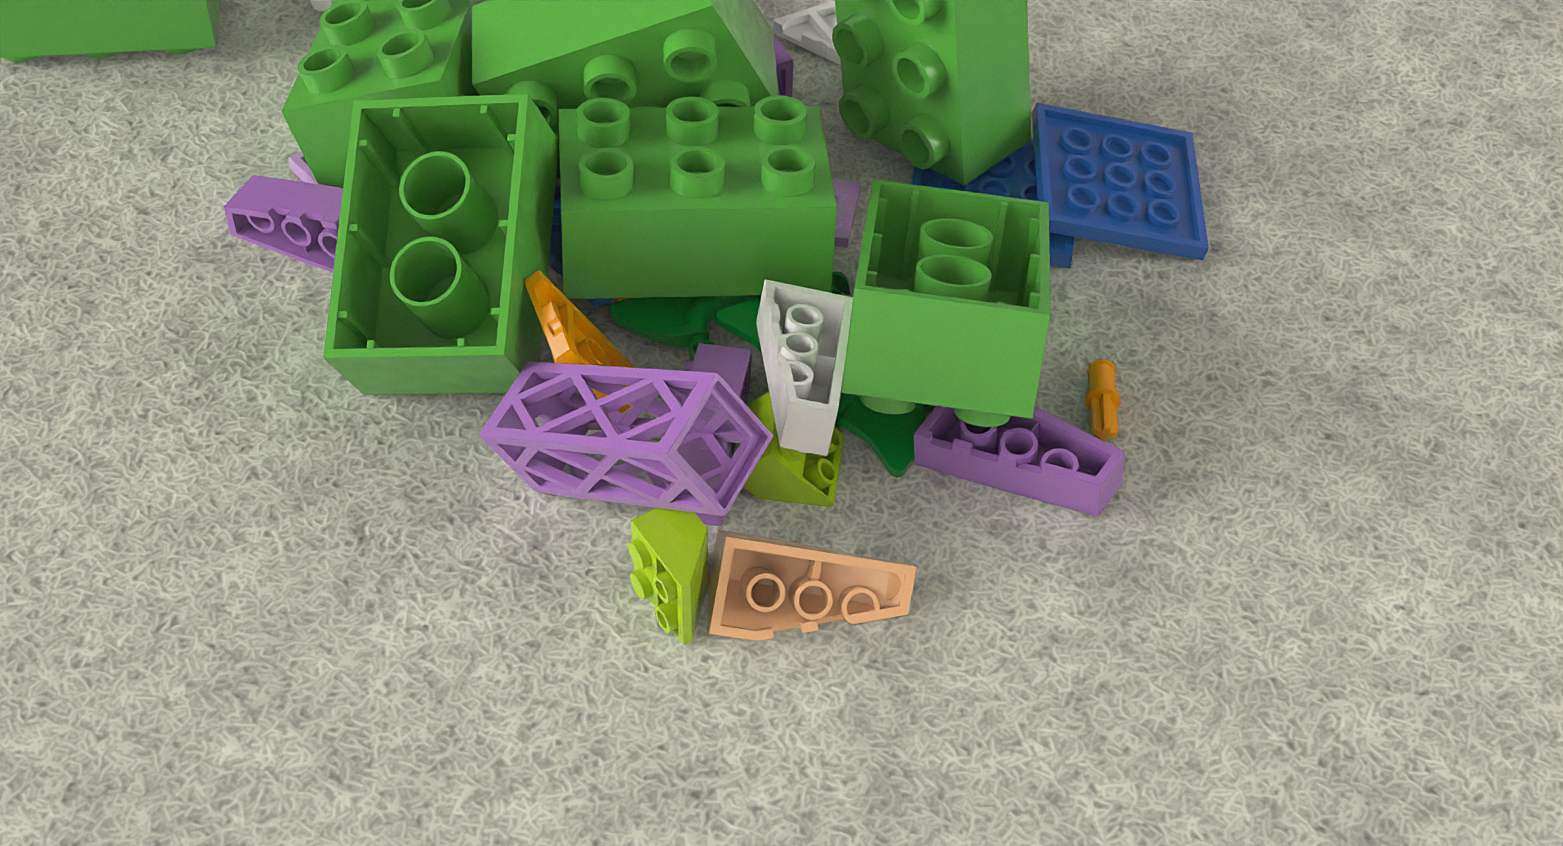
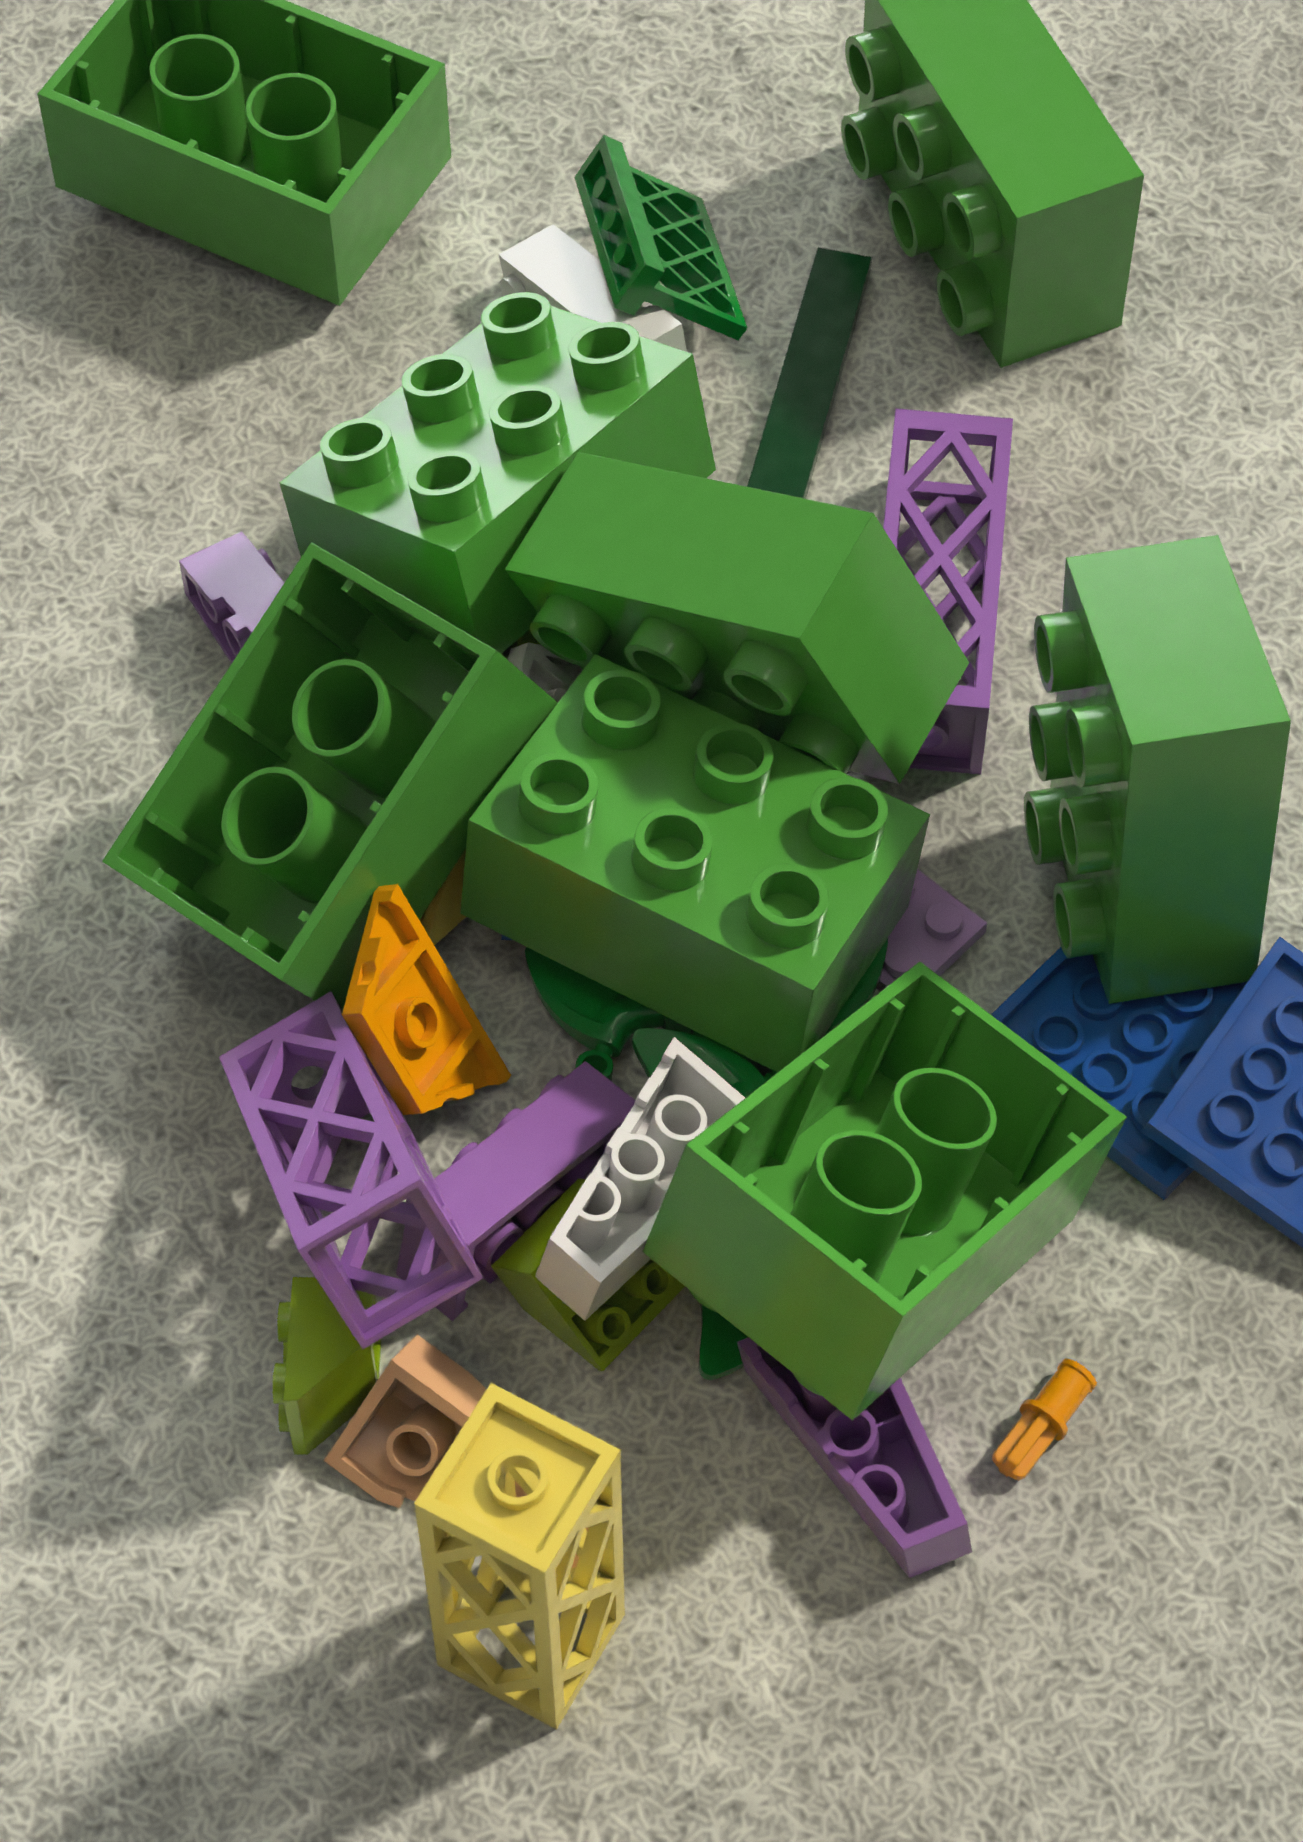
camera: 35 degrees right, 10 degrees up
(919, 516) = (524, 1546): none -> light yellow piece

